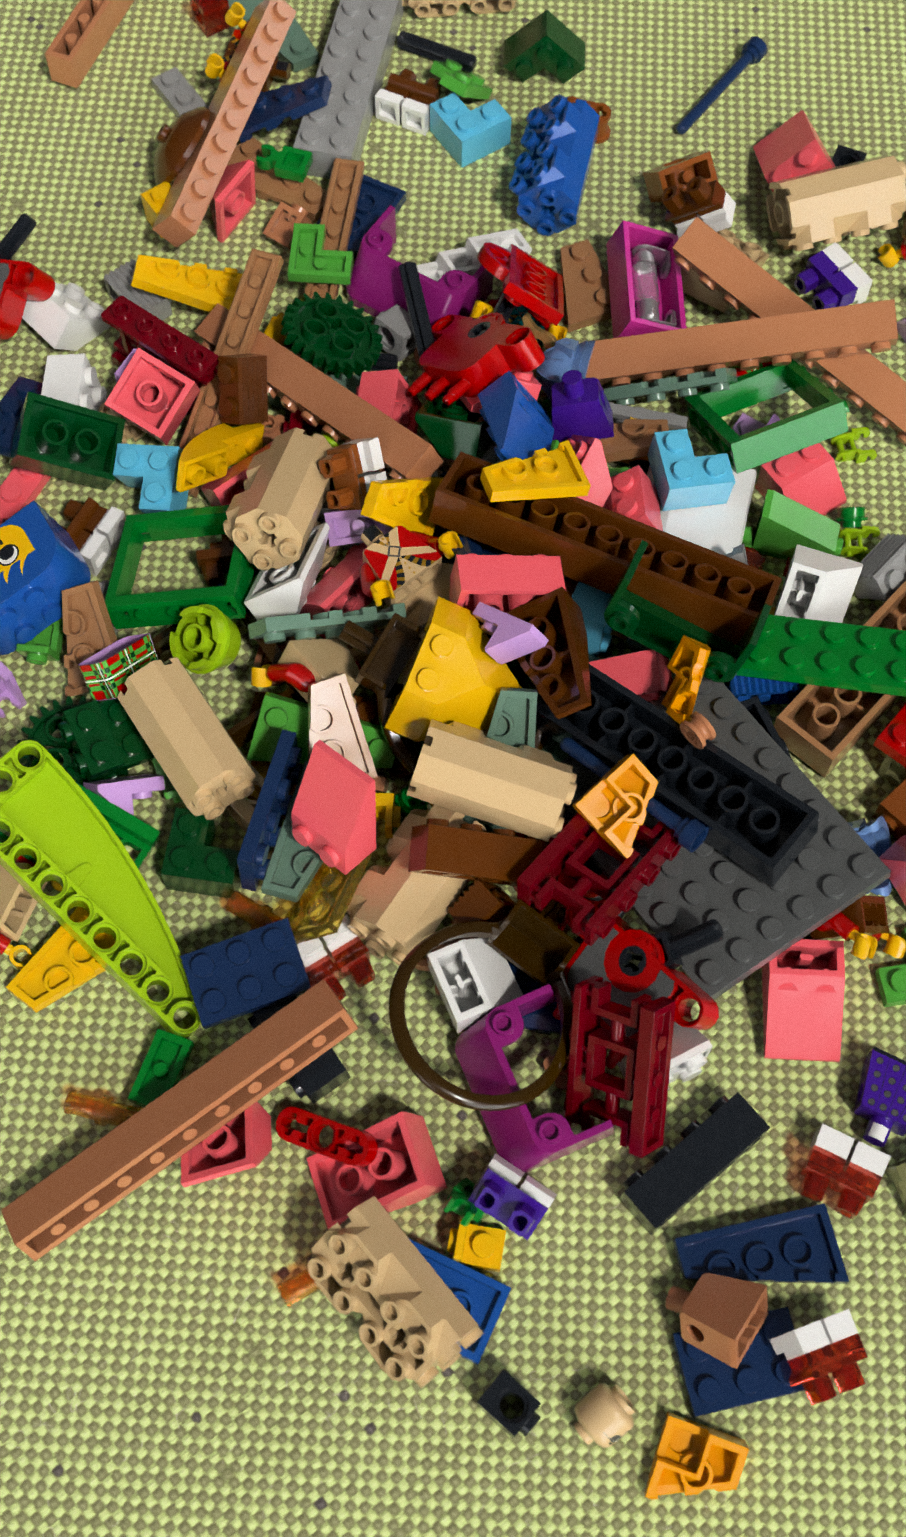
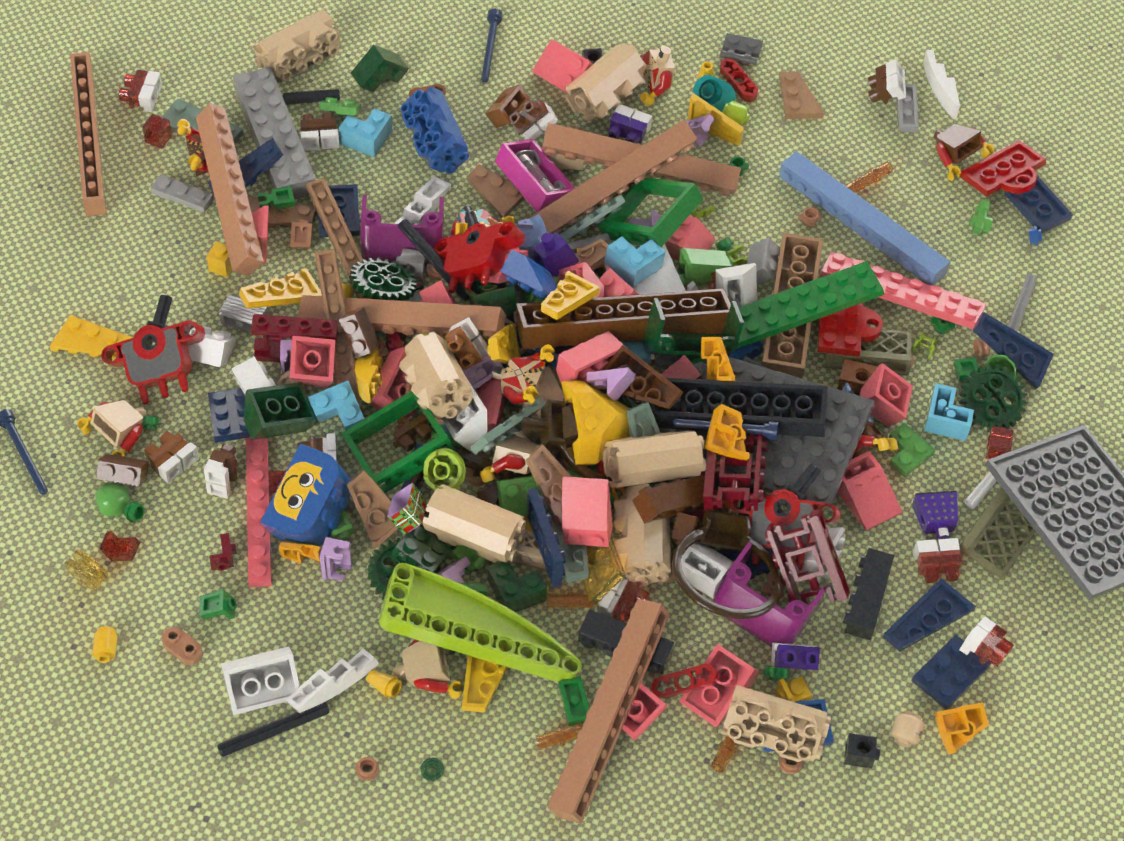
camera: 35 degrees left, 10 degrees down
(178, 143) = (211, 217): reddish brown dish -> none
(245, 973) = (590, 623): dark blue plate -> none
(312, 263) = (345, 246): bright green plate -> none
(525, 281) = (474, 201): red plate -> none
(697, 730) = (742, 378): nougat bush -> none
(720, 1315) = (929, 652): nougat torso -> none

